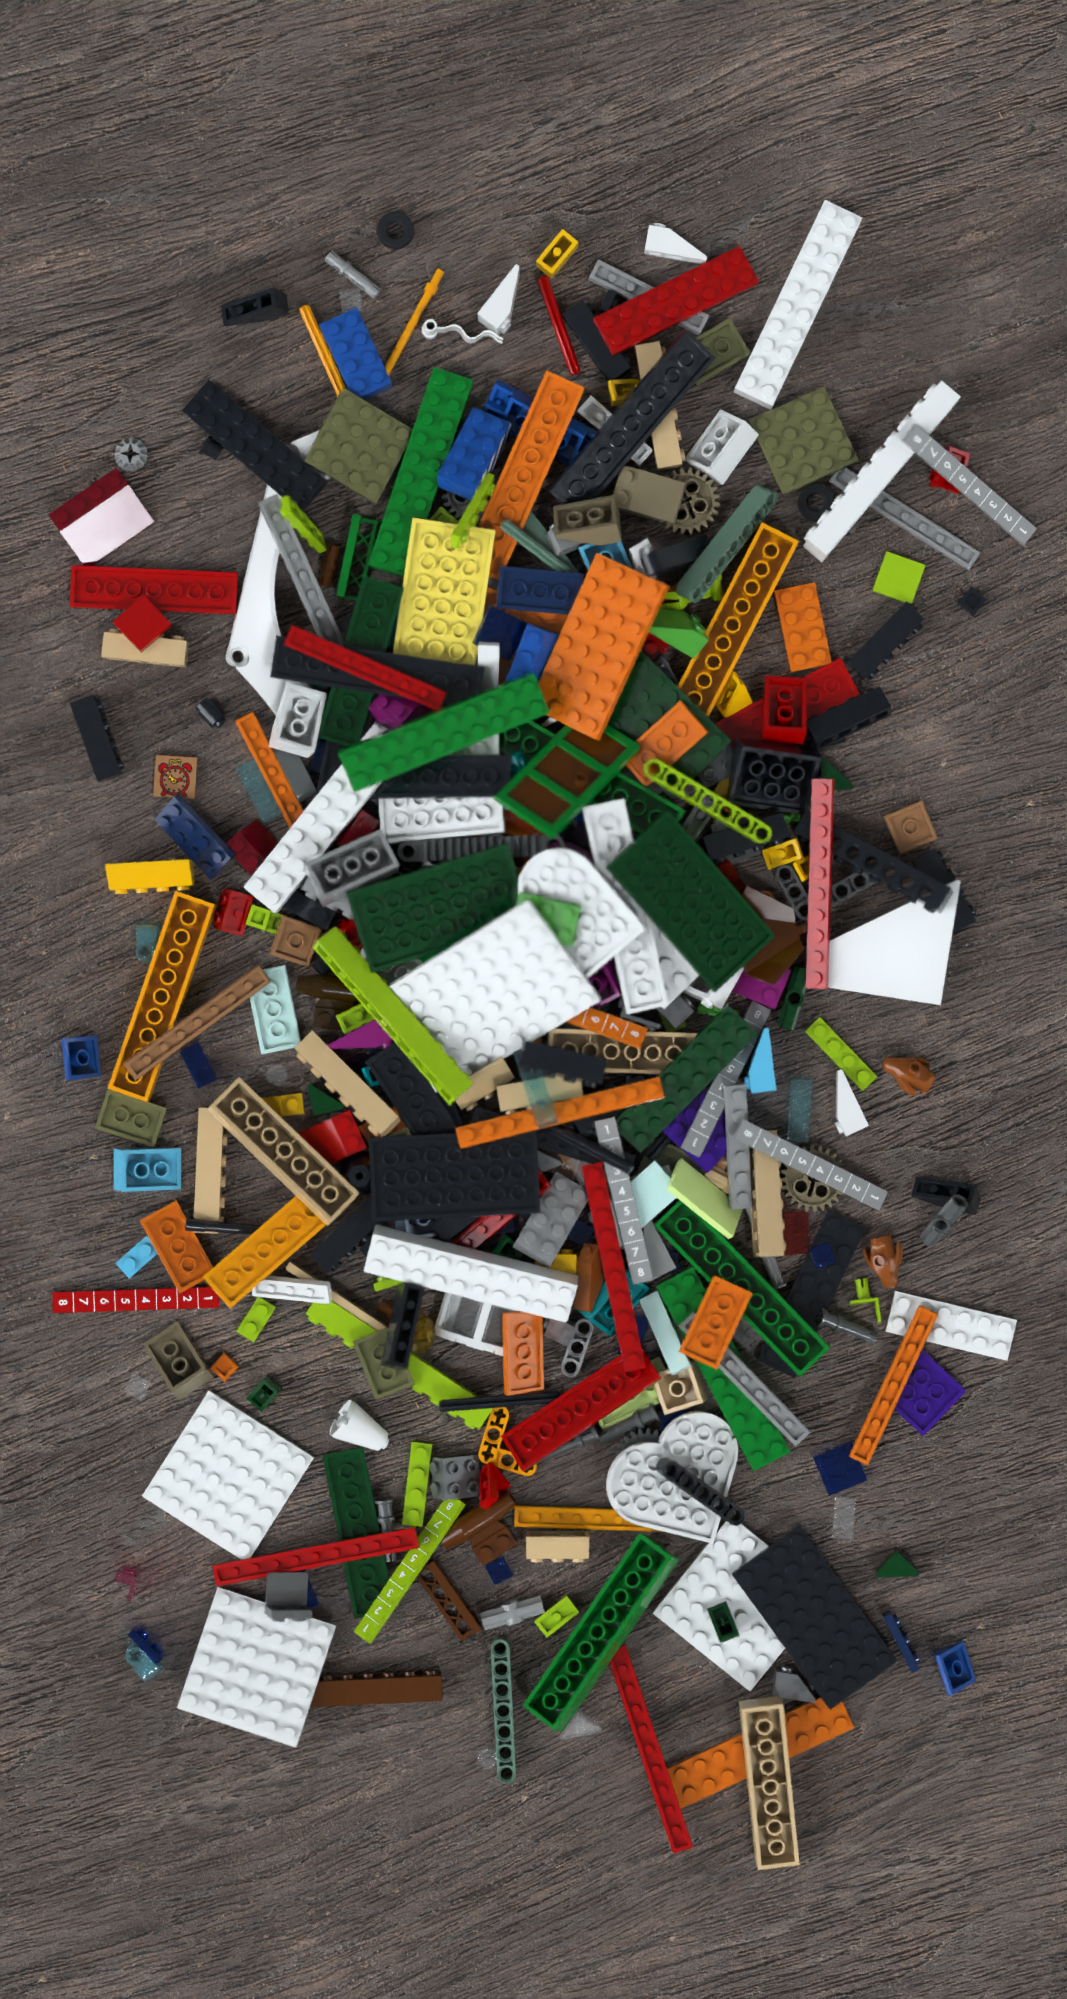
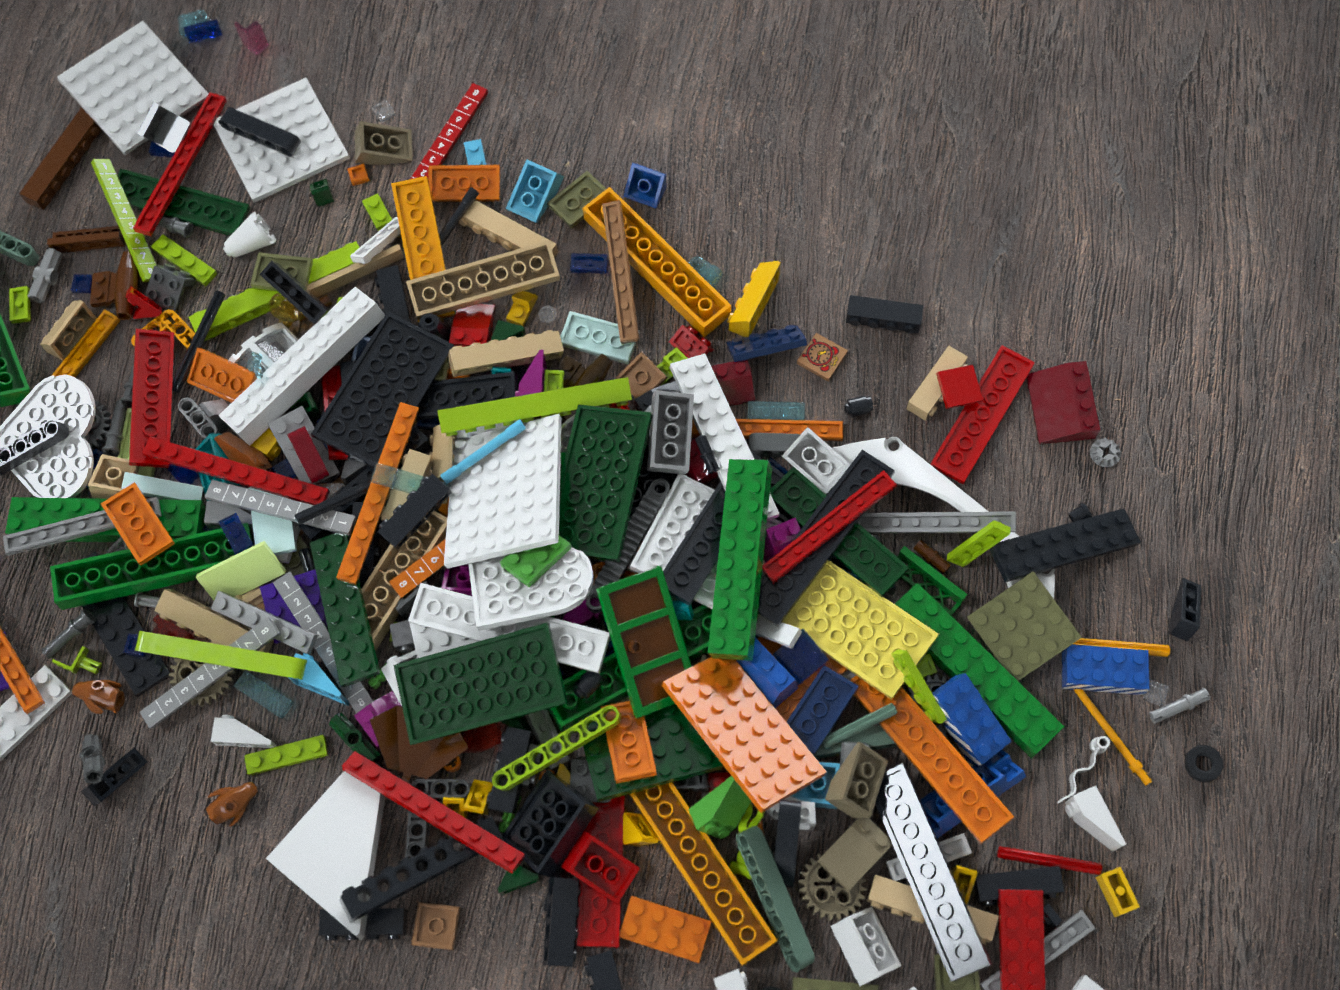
camera: 115 degrees right, 20 degrees down
(236, 1496) = (259, 131): none -> black beam
(352, 822) = (707, 454): none -> black axle
(496, 1322) = (254, 364): none -> clear light blue bar
(498, 1051) = (509, 433): none -> medium azure piece
(560, 1204) = (308, 454): none -> dark red beam
(637, 807) = (587, 685): none -> black brick
(672, 1224) = (235, 533): none -> clear blue plate
(792, 1159) = (221, 655): none -> lime beam

